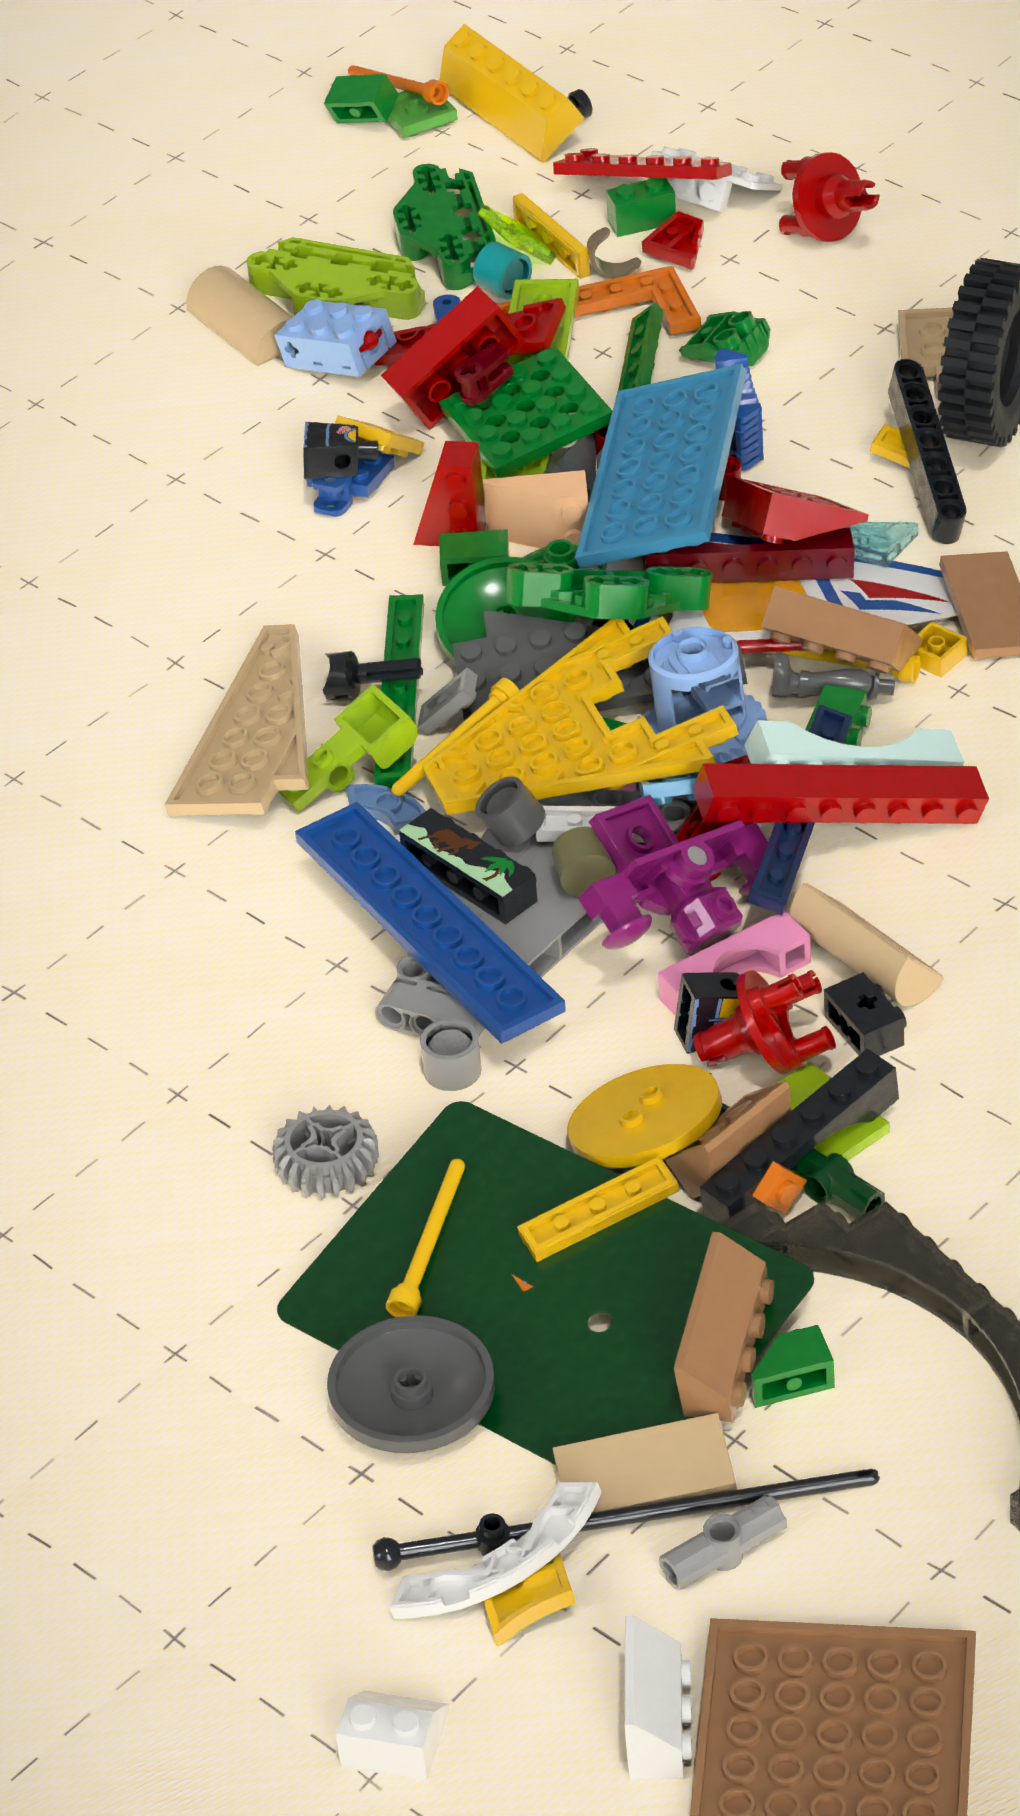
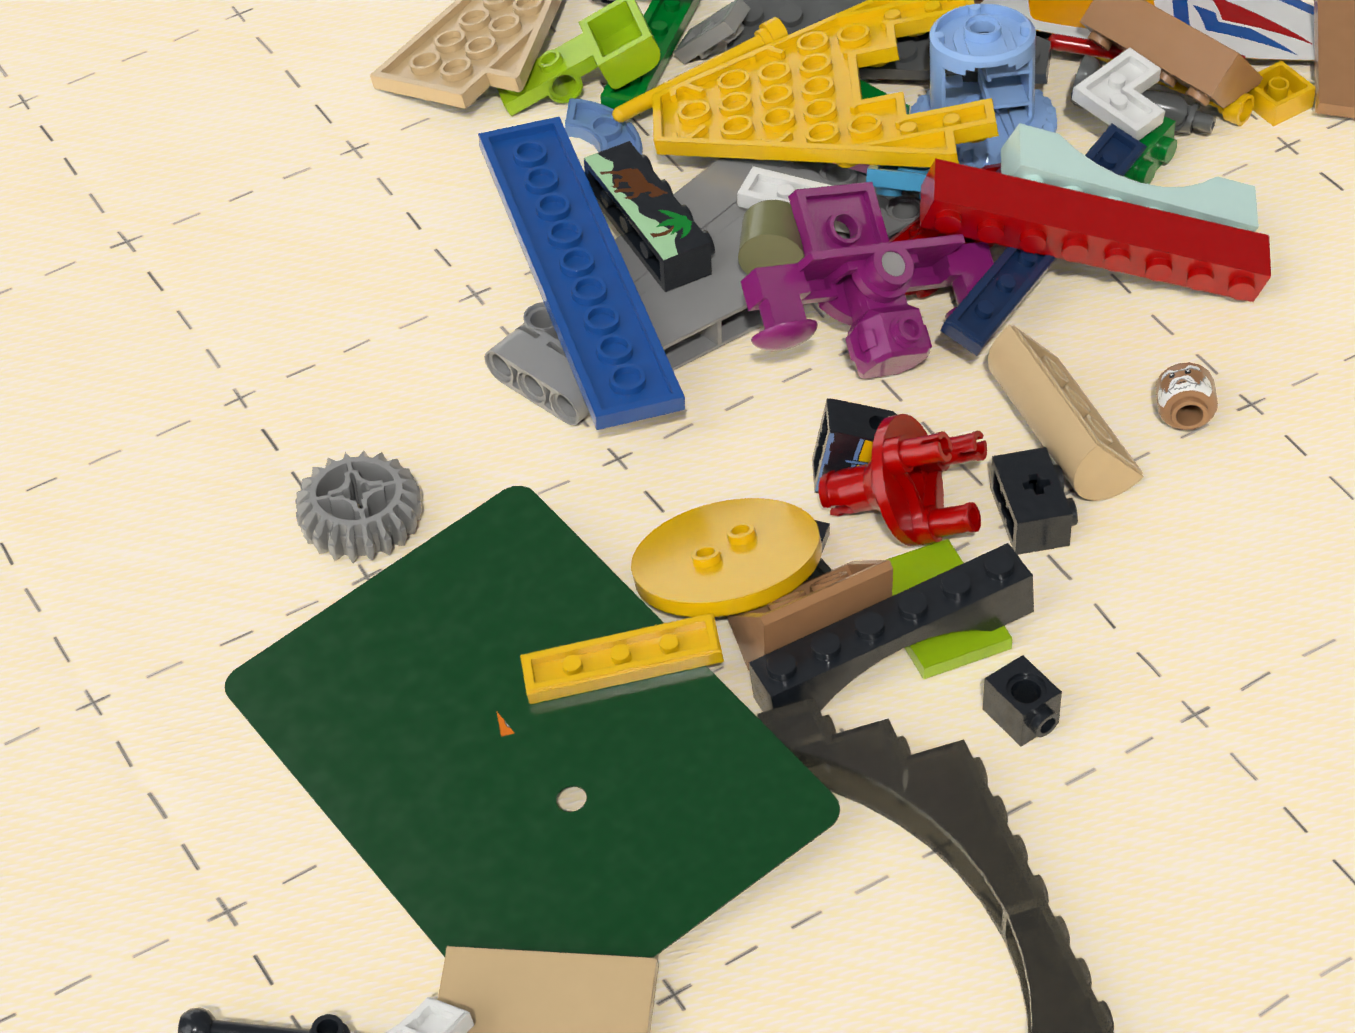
camera: 15 degrees right, 5 degrees up
(406, 1298) = (362, 709): yellow piece -> none
(411, 1384) = (319, 819): dark grey dish -> none
(450, 1054) = (544, 427): light grey piece -> none
(510, 811) = (715, 165): dark grey piece -> none
(722, 1330) = (693, 855): medium nougat slope -> none
(769, 947) = (954, 389): bright pink arch -> none
(779, 1187) = (846, 687): orange bracket -> none
(793, 1367) = (773, 921): green slope -> none
(812, 678) = (1117, 96): none -> white plate
(834, 1180) = (918, 694): dark green piece -> none
(916, 1165) = (1022, 701): none -> black brick
(955, 908) = (1186, 396): none -> medium nougat head

